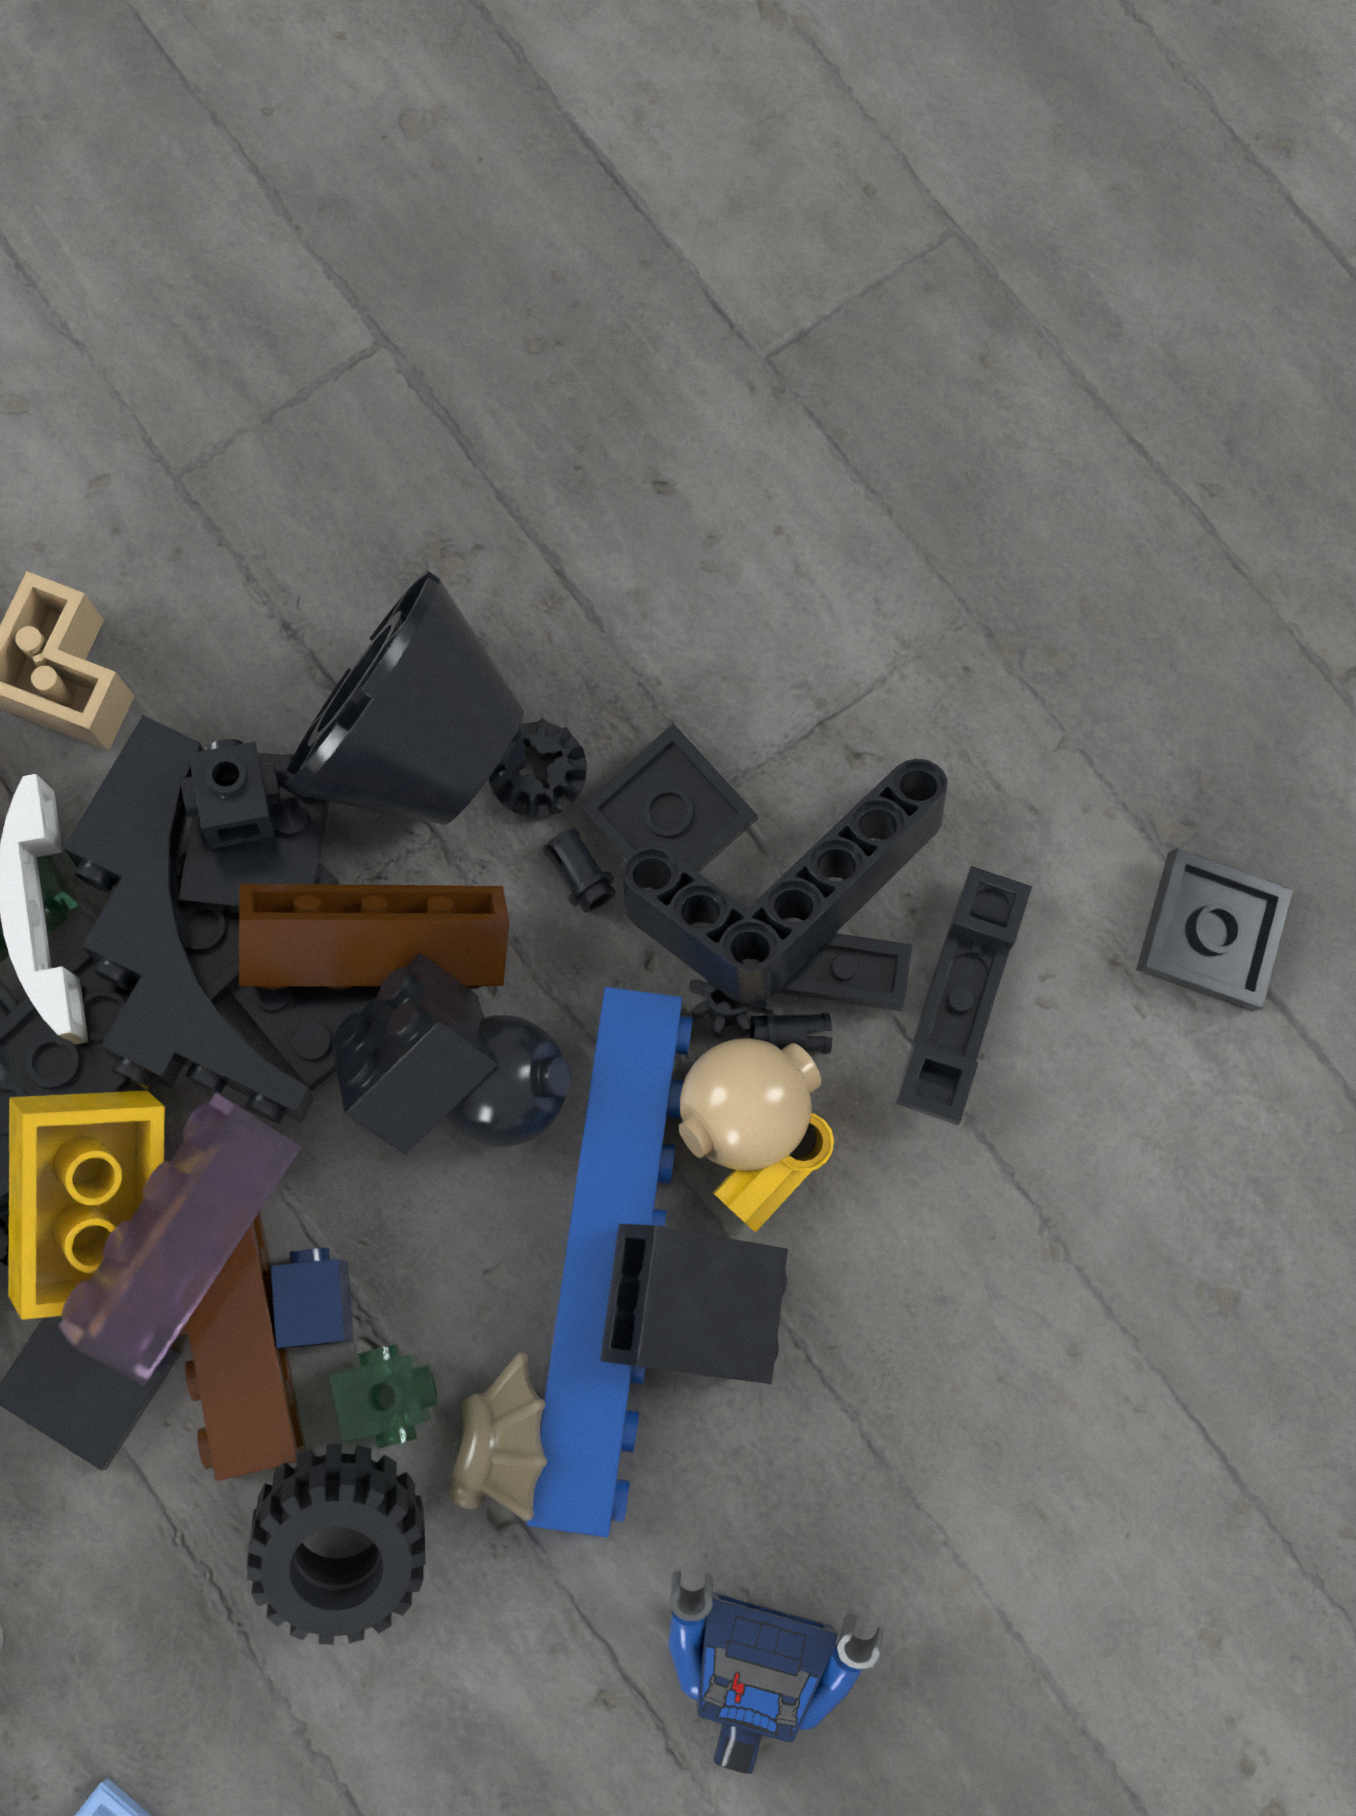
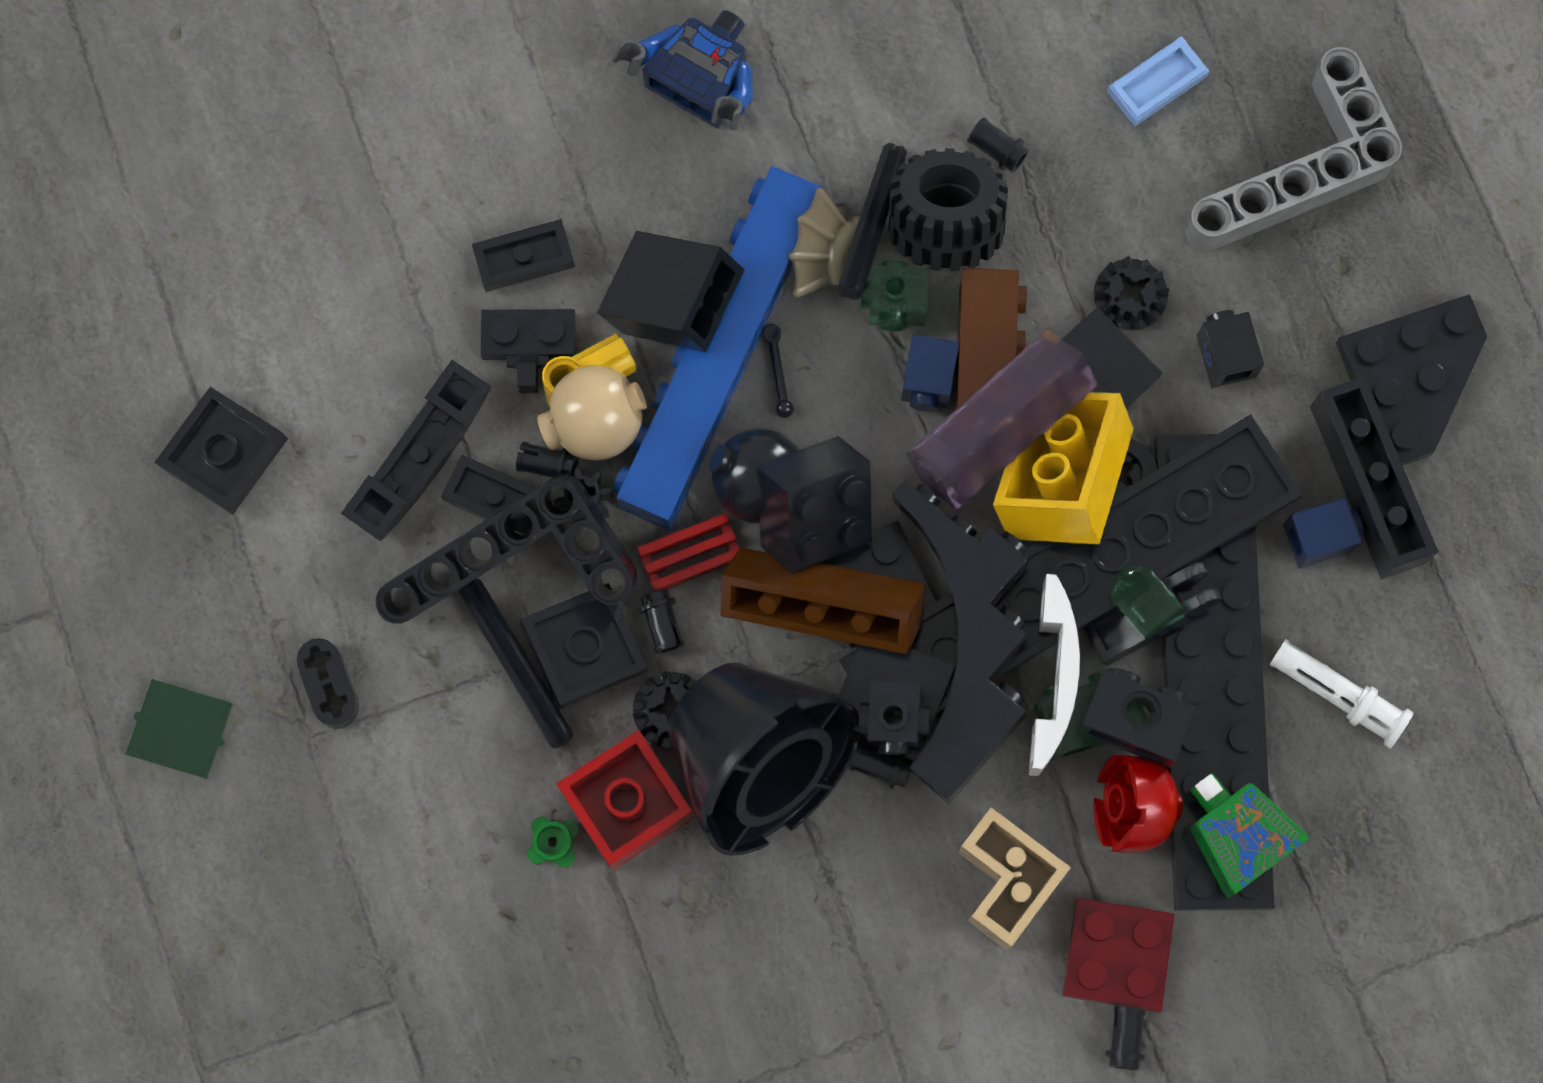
camera: 160 degrees left, 0 degrees up
(90, 1508) = (1128, 313): none -> black gear
(295, 1680) = (998, 145): none -> black pin
(444, 1499) = (870, 224): none -> black axle
(546, 1301) = (772, 336): none -> black hinge
(557, 627) = (625, 800): none -> red brick
(612, 937) = (681, 537): none -> red tile
(630, 556) = (562, 852): none -> green plate
(741, 764) = (516, 663): none -> black axle
(870, 1194) = (527, 340): none -> black hinge
(916, 1311) = (523, 255): none -> black plate
(982, 673) = (317, 687): none -> black beam
(1130, 584) = (179, 729): none -> clear green piece

